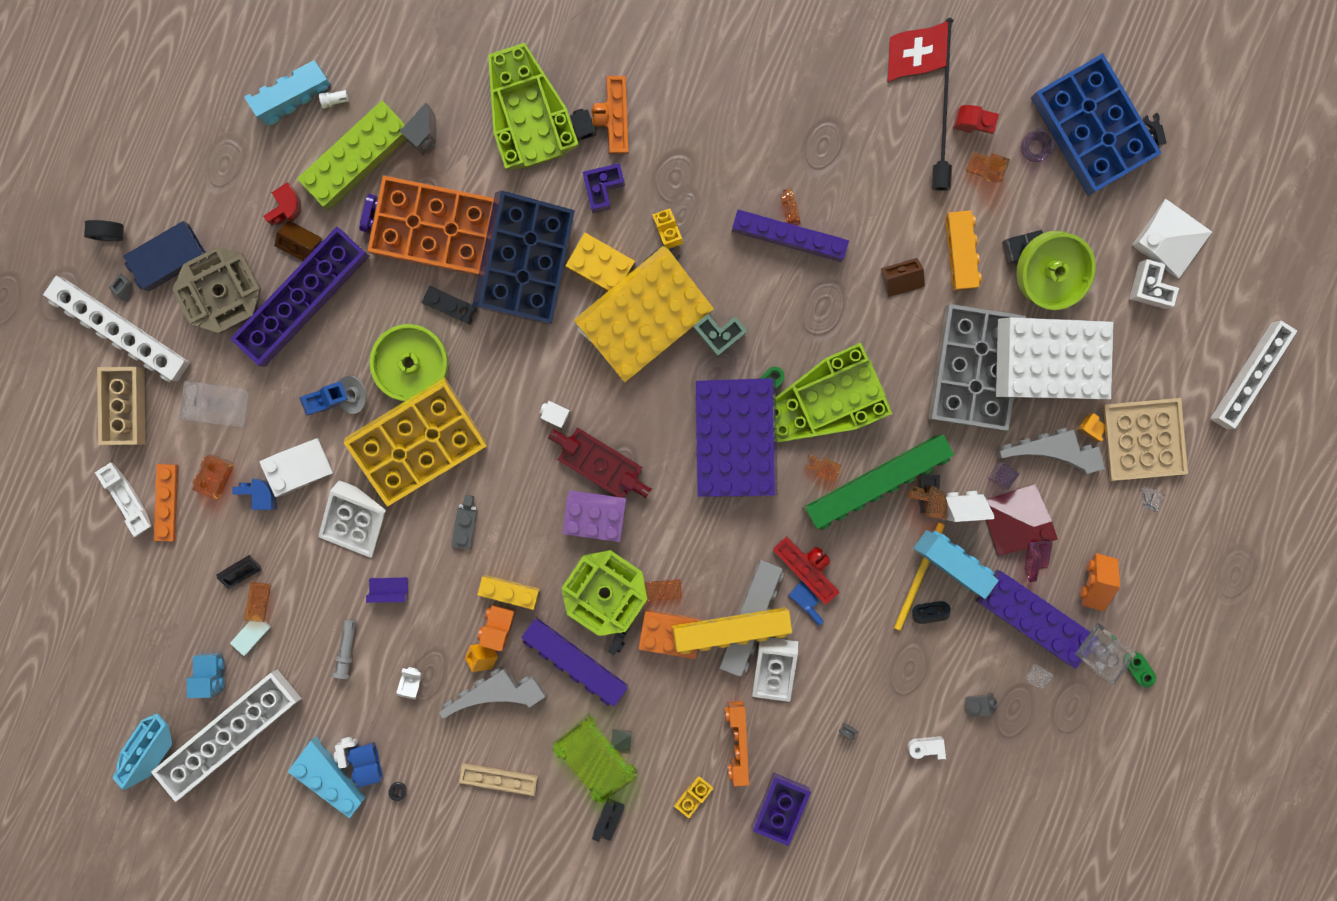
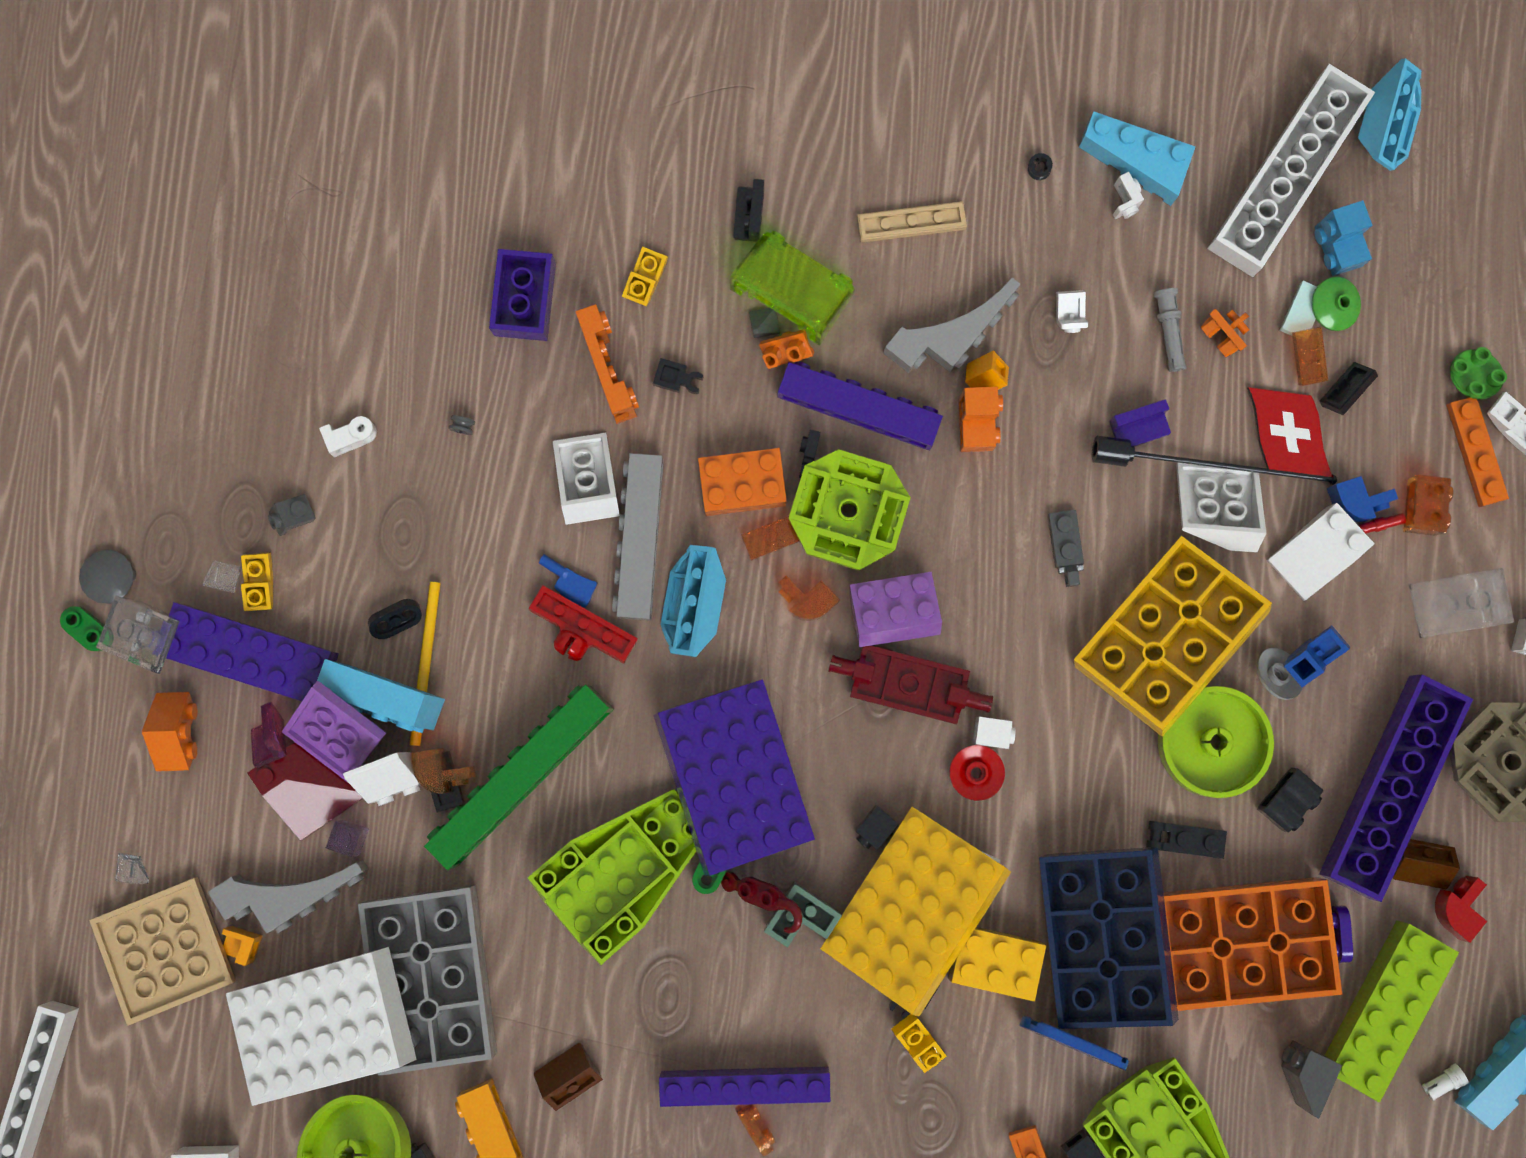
camera: 165 degrees right, 5 degrees down
(147, 555) = (1477, 373): none -> bright green dish
(233, 634) = (1327, 303): none -> bright green dish
(248, 473) = (1381, 523): none -> red piece
(291, 552) = (1286, 434): none -> flag
(312, 644) = (1217, 322): none -> orange hips
(365, 764) = (1094, 187): blue brick -> none
(372, 309) = (1291, 800): none -> black brick
(508, 592) = (978, 472): yellow brick -> none
(566, 384) = (991, 775): none -> red dish
(567, 198) = (1074, 1042): none -> blue tile
(599, 181) = (1036, 1079): dark purple brick -> none
(612, 716) = (786, 348): none -> orange hips
(649, 536) = (809, 606): none -> clear orange brick
(653, 375) = (875, 828): none -> black brick
(694, 721) = (673, 376): none -> black plate
(727, 563) = (693, 601): none -> medium azure wedge
(731, 629) = (661, 511): yellow brick -> none
(740, 354) = (763, 895): none -> dark red piece
(825, 469) = (596, 772): clear orange plate -> none
(993, 549) = (333, 730): none -> medium lavender plate
(1016, 665) = (258, 581): none -> yellow slope
(1116, 701) = (106, 575): none -> dark grey dish

